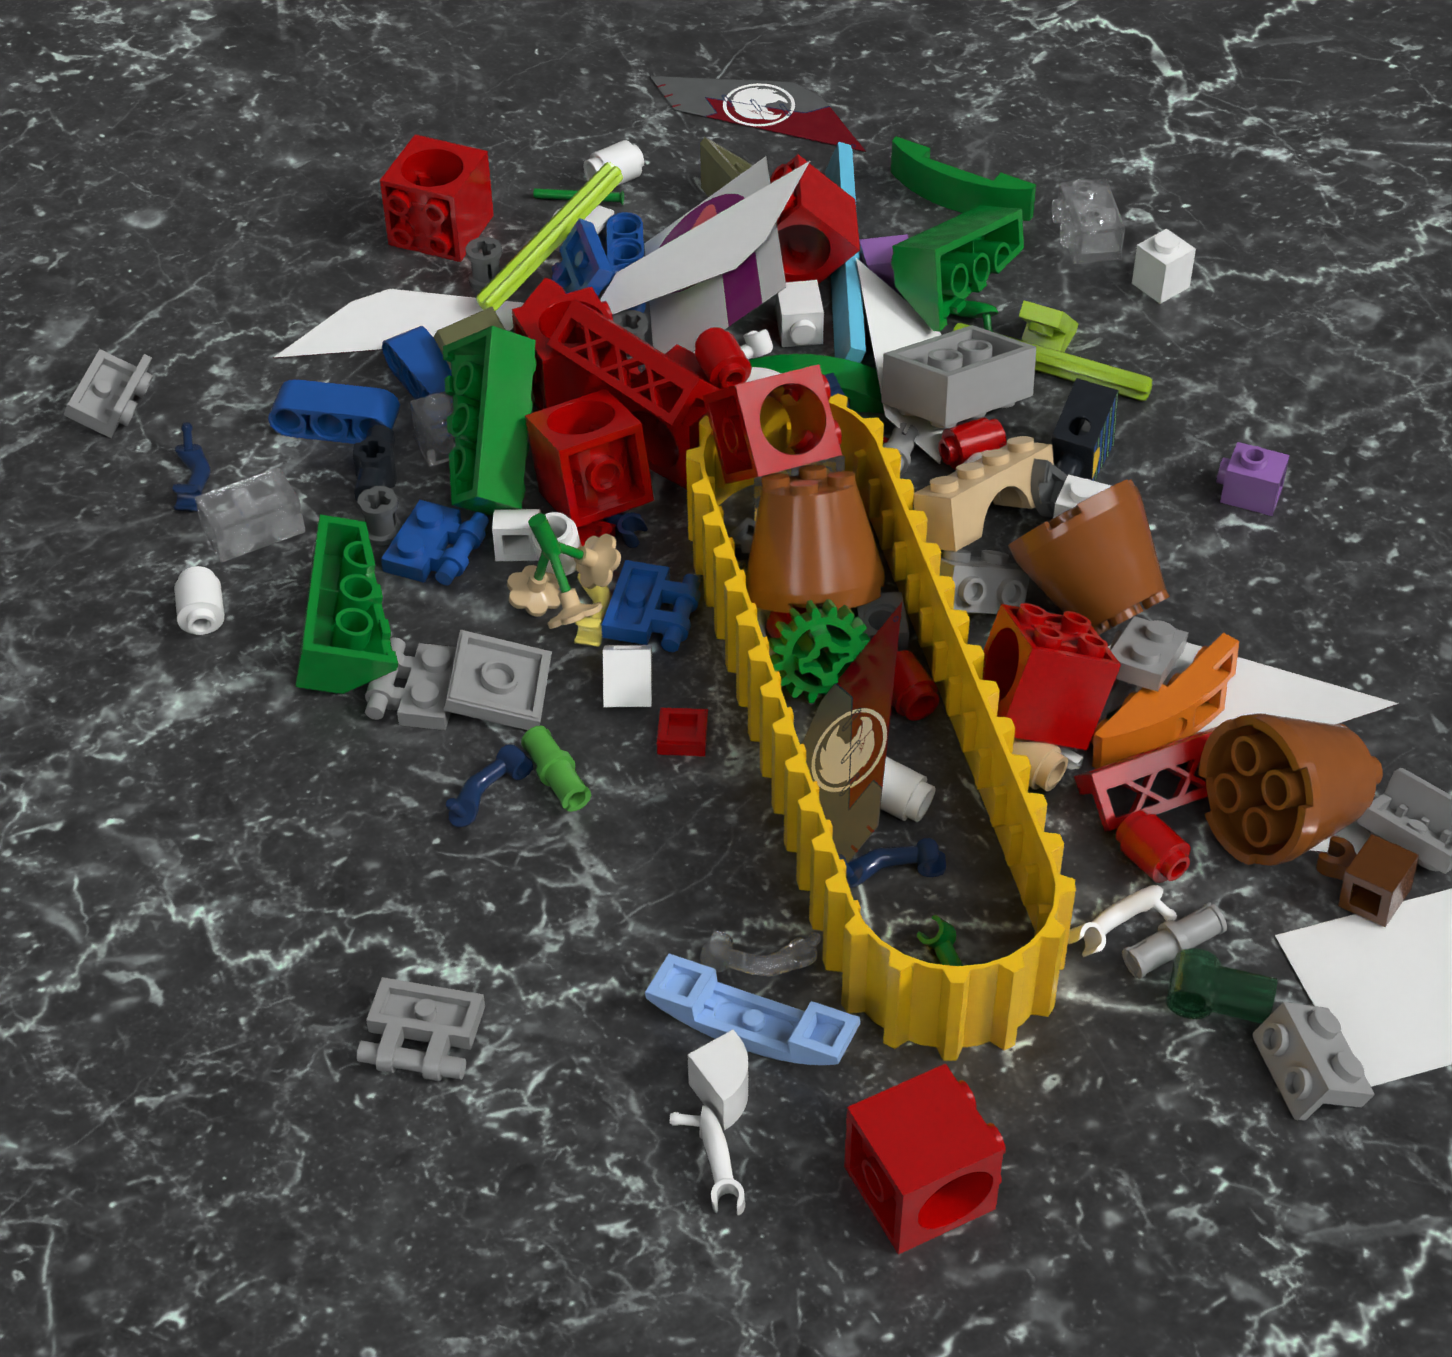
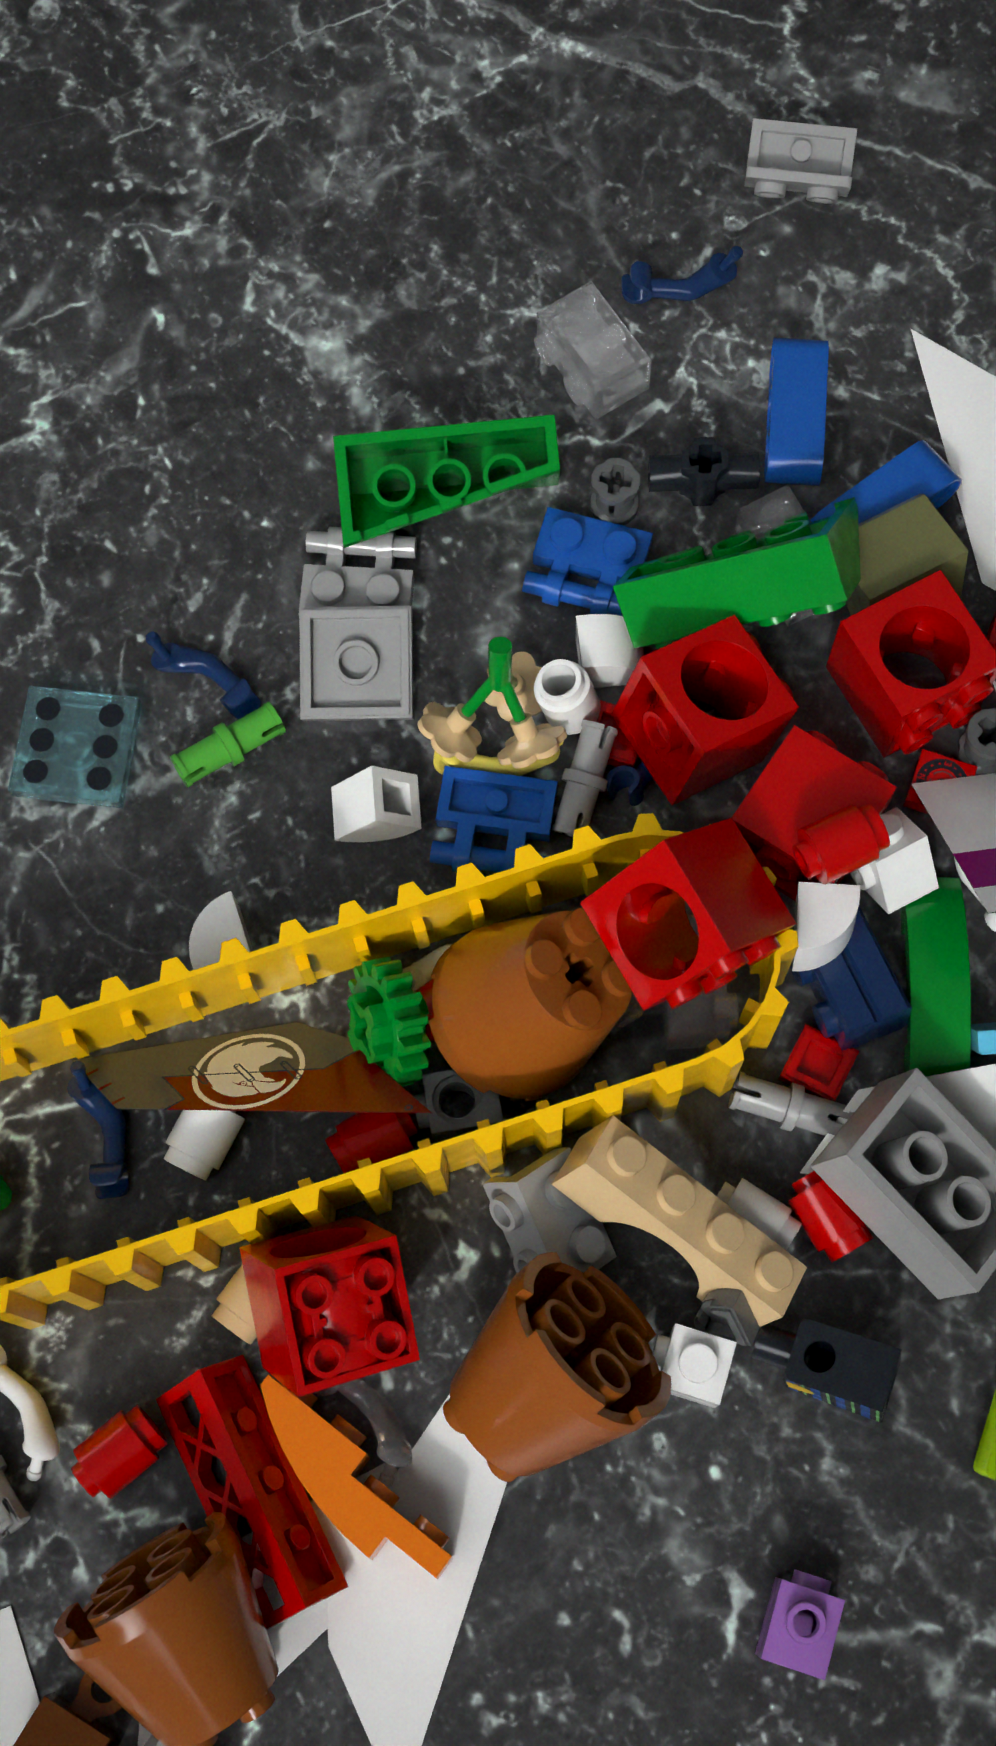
camera: 90 degrees right, 25 degrees up
(199, 601) = (458, 328): white brick -> none
(536, 880) = (75, 747): none -> clear light blue tile
(627, 543) = (584, 777): none -> light grey pin
(642, 354) = (839, 731): red fence -> none
(682, 731) = (300, 880): red tile -> none
(734, 771) = (215, 924): none -> white brick
(1147, 652) = (405, 1443): light grey bracket -> none

